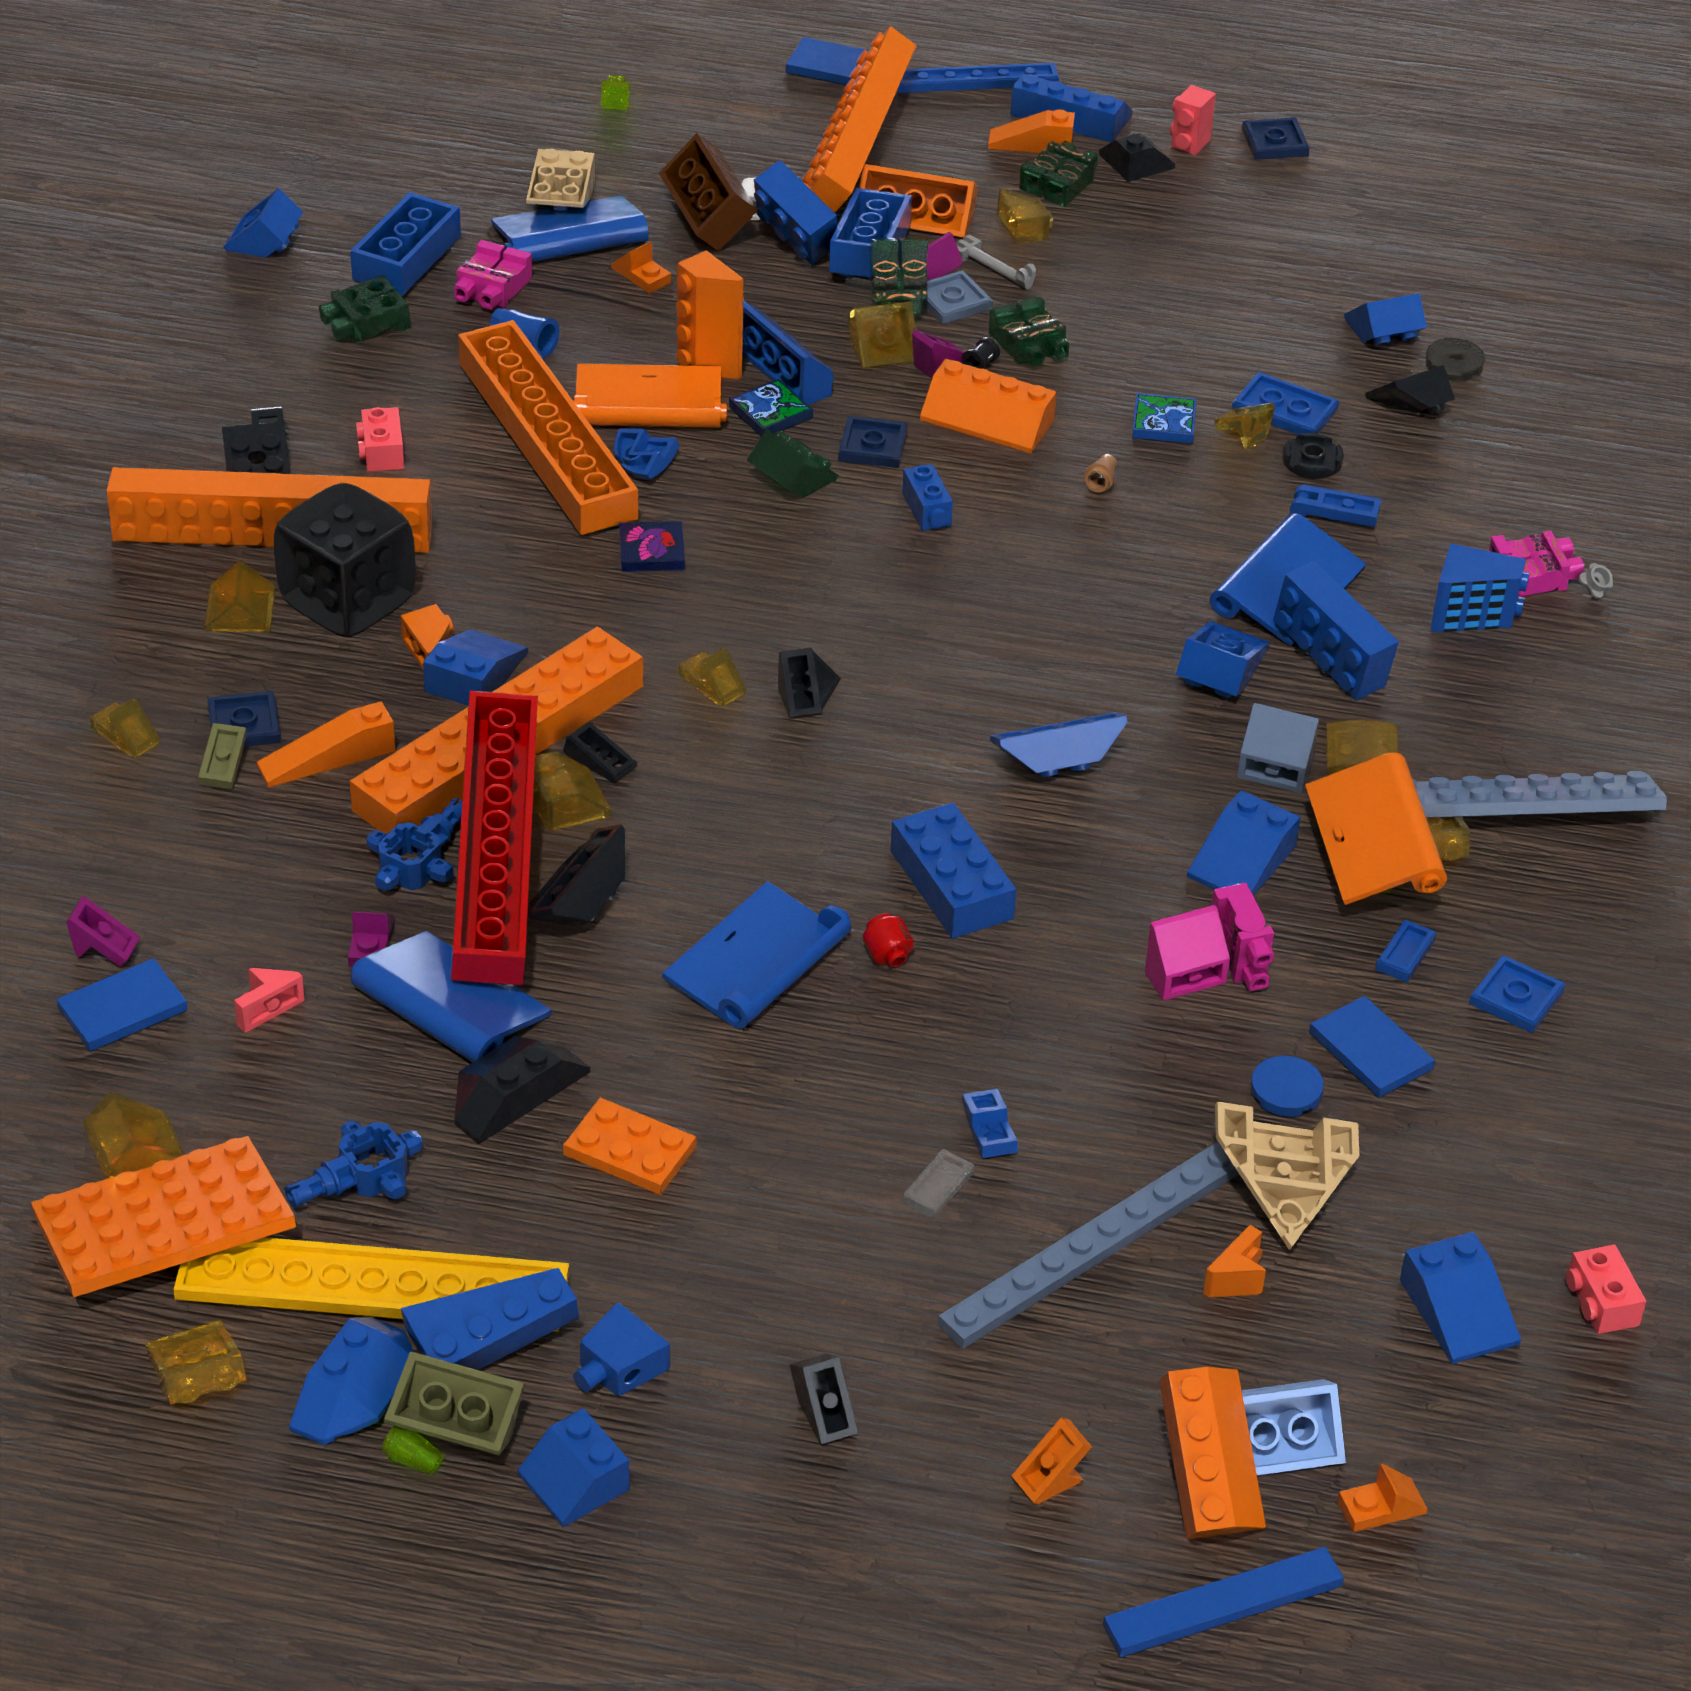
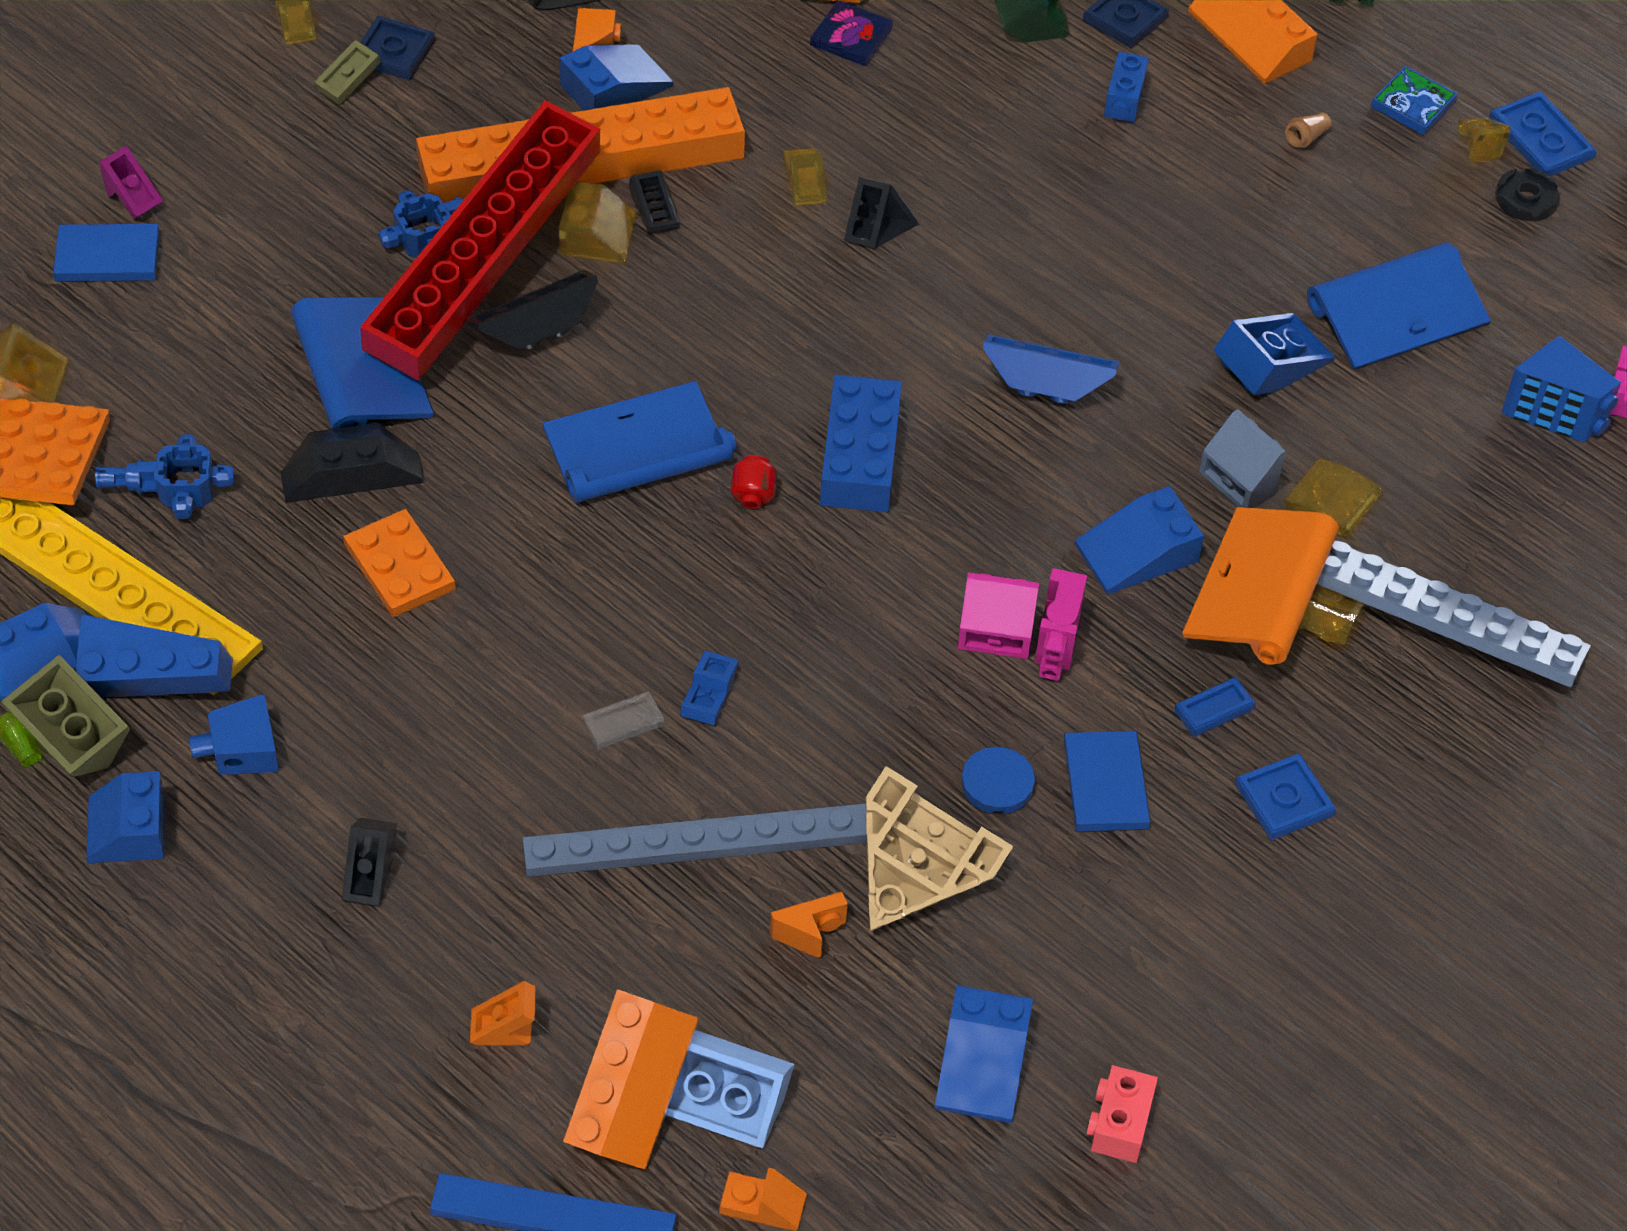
camera: 30 degrees right, 10 degrees up
(269, 996) = (221, 299): coral slope -> none
(337, 743) = (447, 100): orange wedge -> none
(370, 934) = (342, 280): magenta slope -> none
(1335, 630) = (1386, 373): blue brick -> none
(1336, 505) = (1506, 252): blue plate -> none

